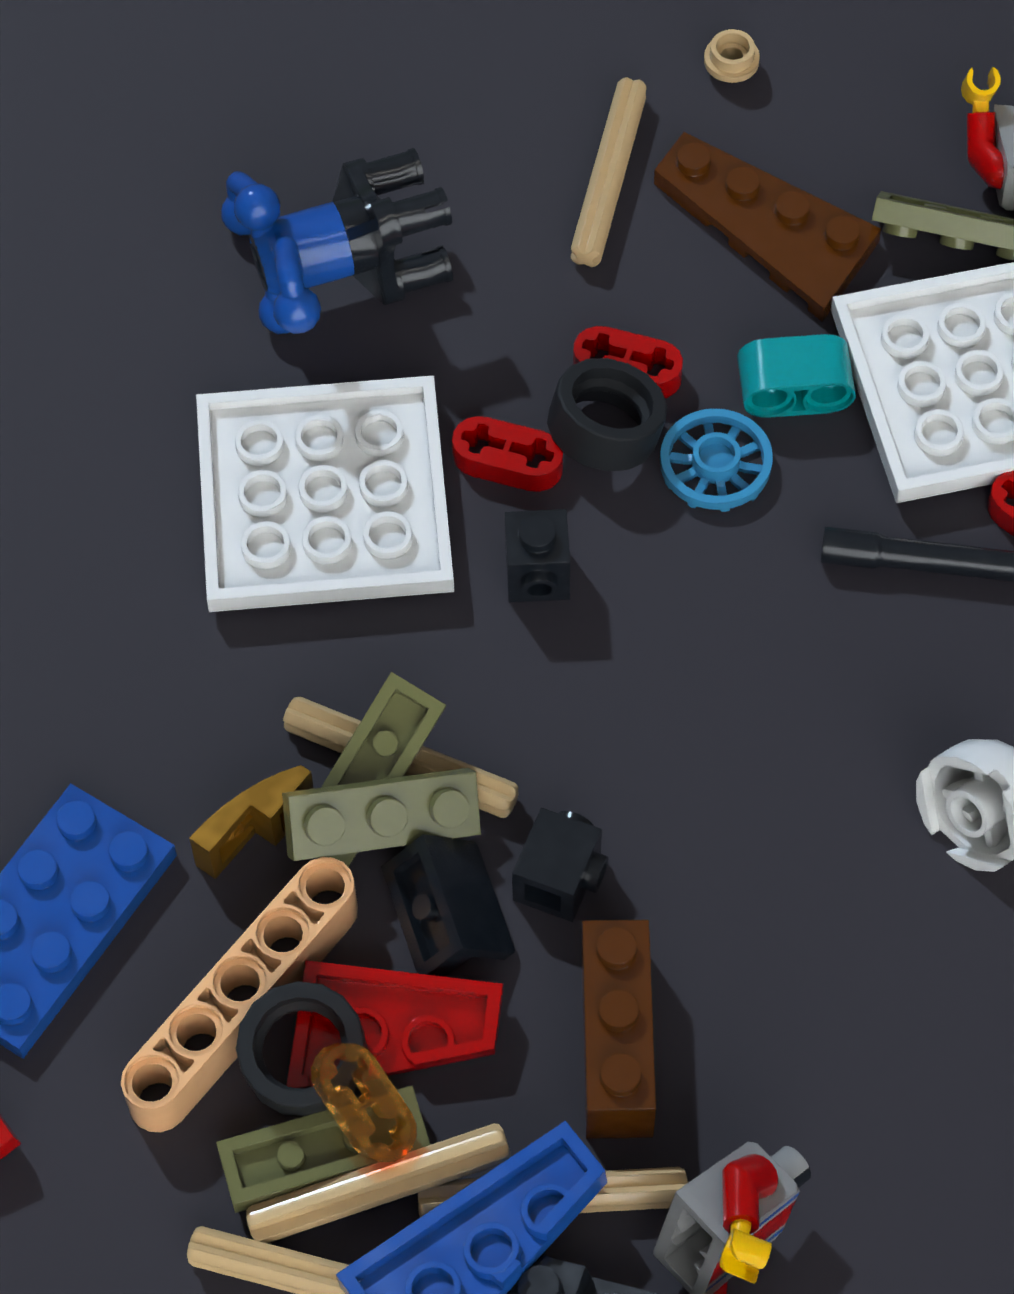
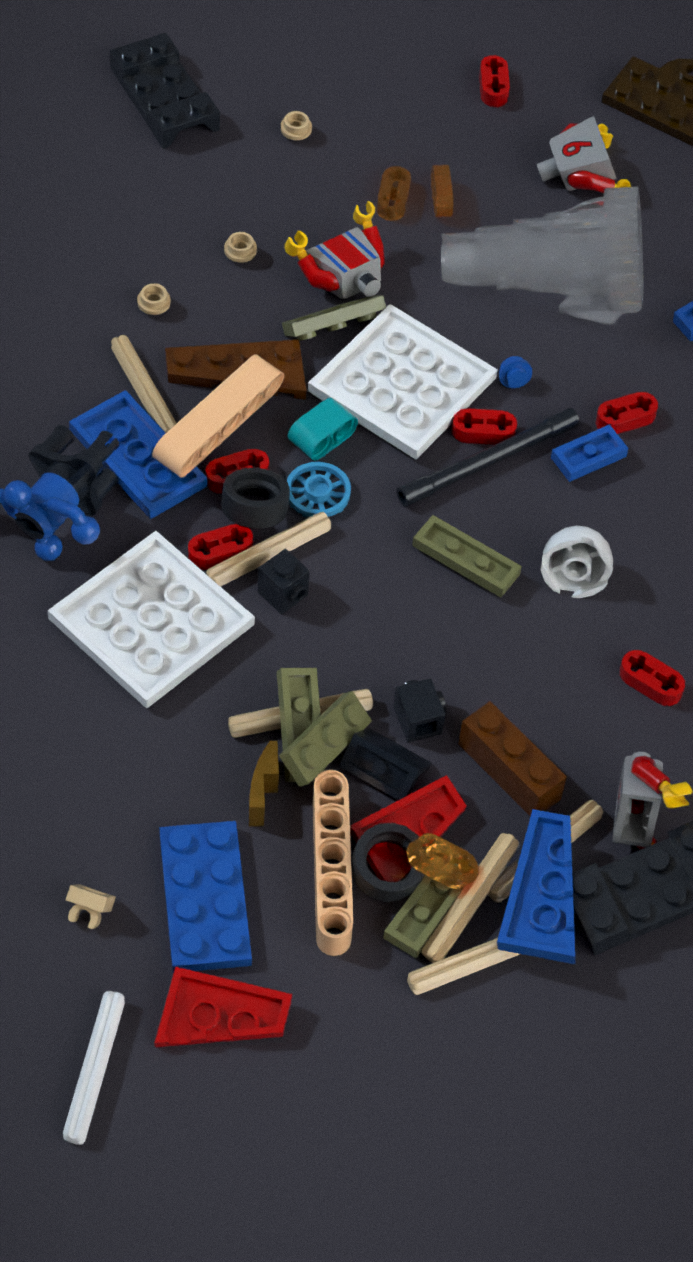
camera: 45 degrees left, 5 degrees down
(512, 258) = (138, 473): none -> blue plate
(579, 499) = (265, 550): none -> tan axle
(654, 266) = (218, 415): none -> light nougat beam
(835, 690) = (466, 556): none -> olive plate
(920, 51) = (240, 247): none -> tan plate
(963, 1049) = (652, 677): none -> red beam

